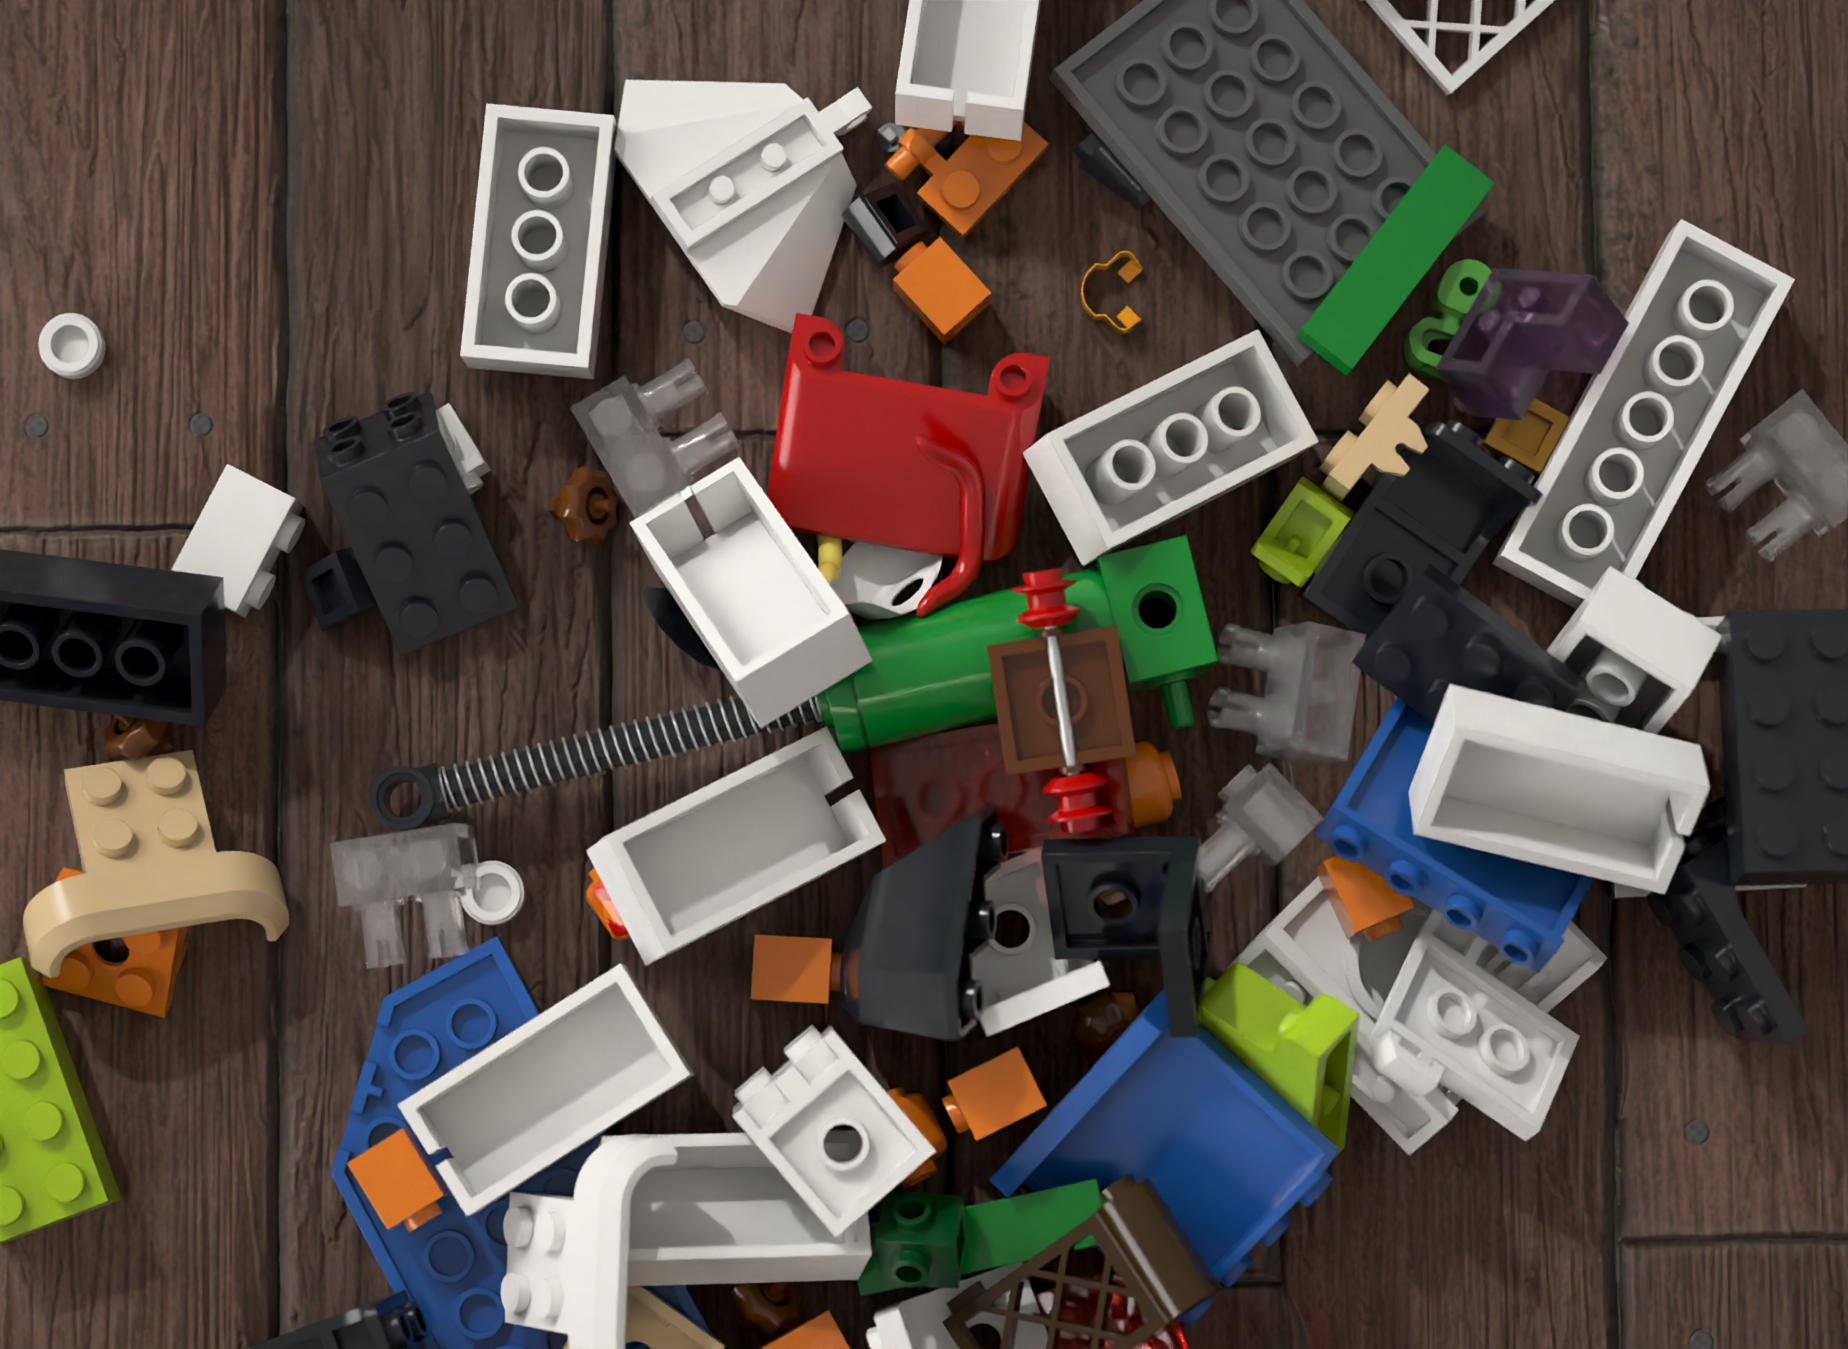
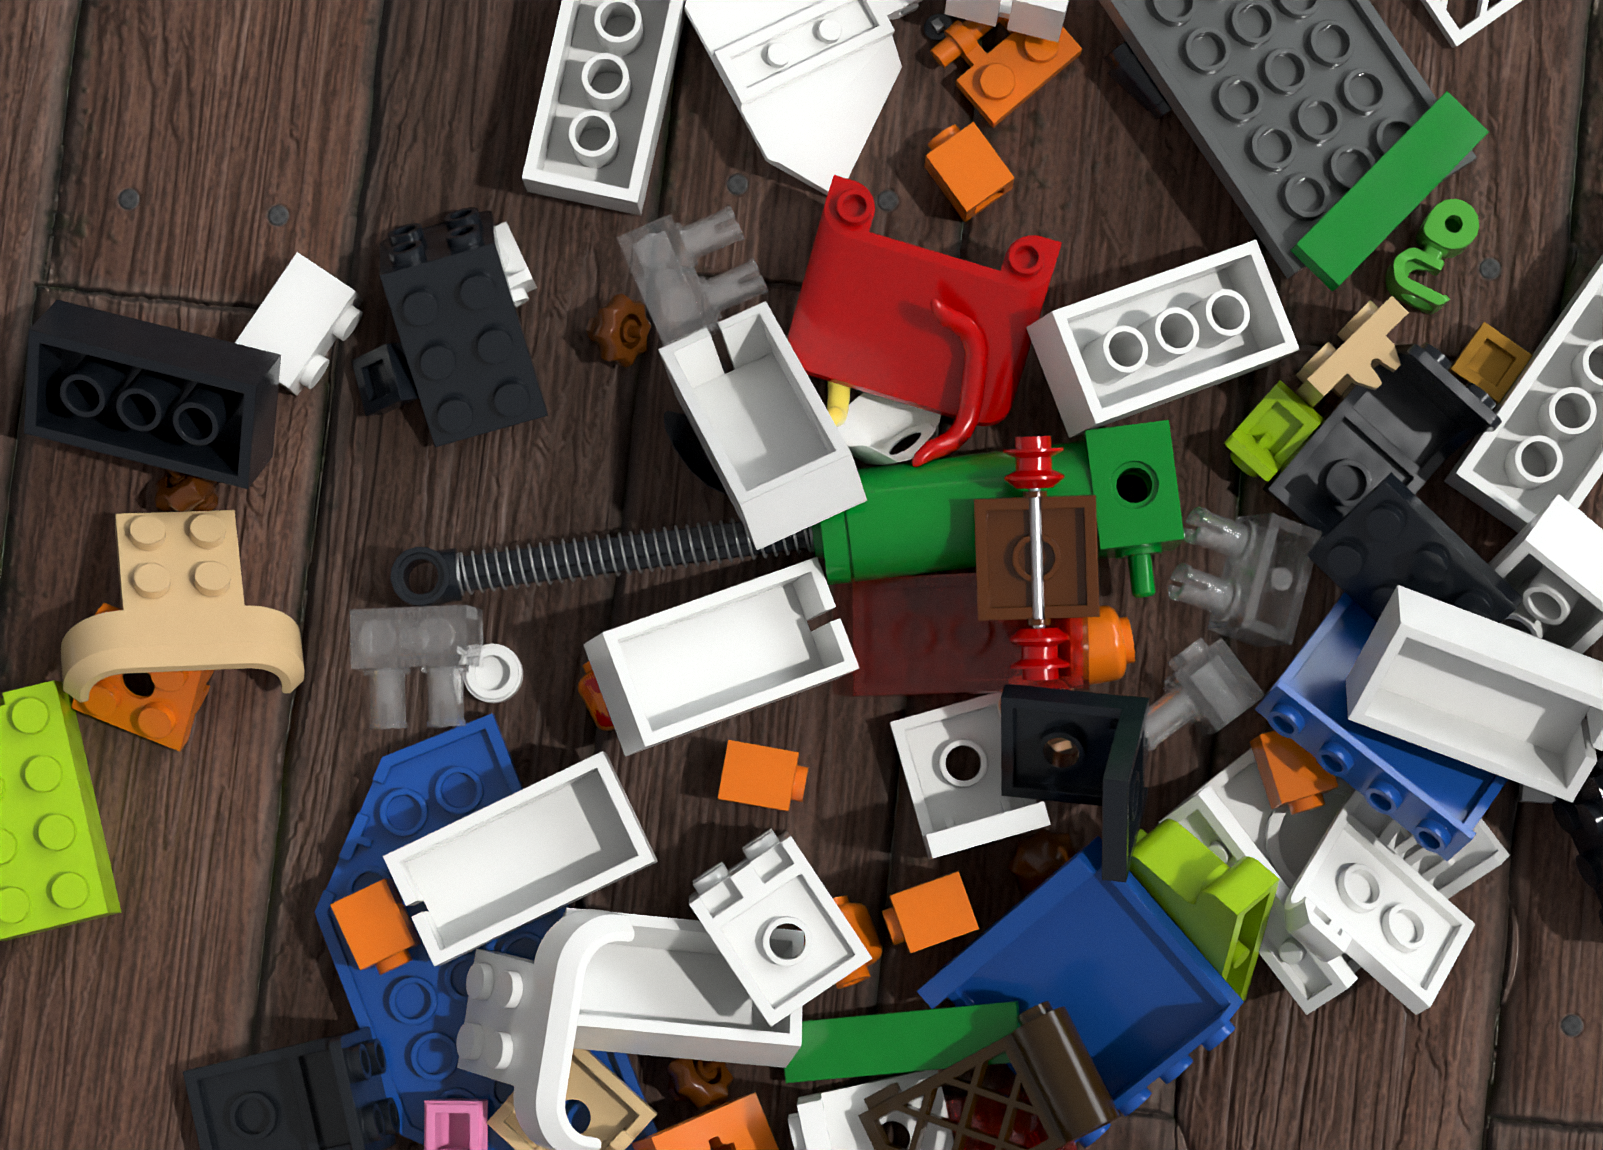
camera: 10 degrees right, 0 degrees up
(72, 346) = (169, 129): white tile -> none
(885, 224) = (924, 105): black brick -> none
(920, 929) = (882, 753): black brick -> none
(920, 1239) = (847, 1038): dark green brick -> none
(1128, 273) = (1141, 176): light orange piece -> none
(1522, 331) = (1504, 267): clear purple brick -> none

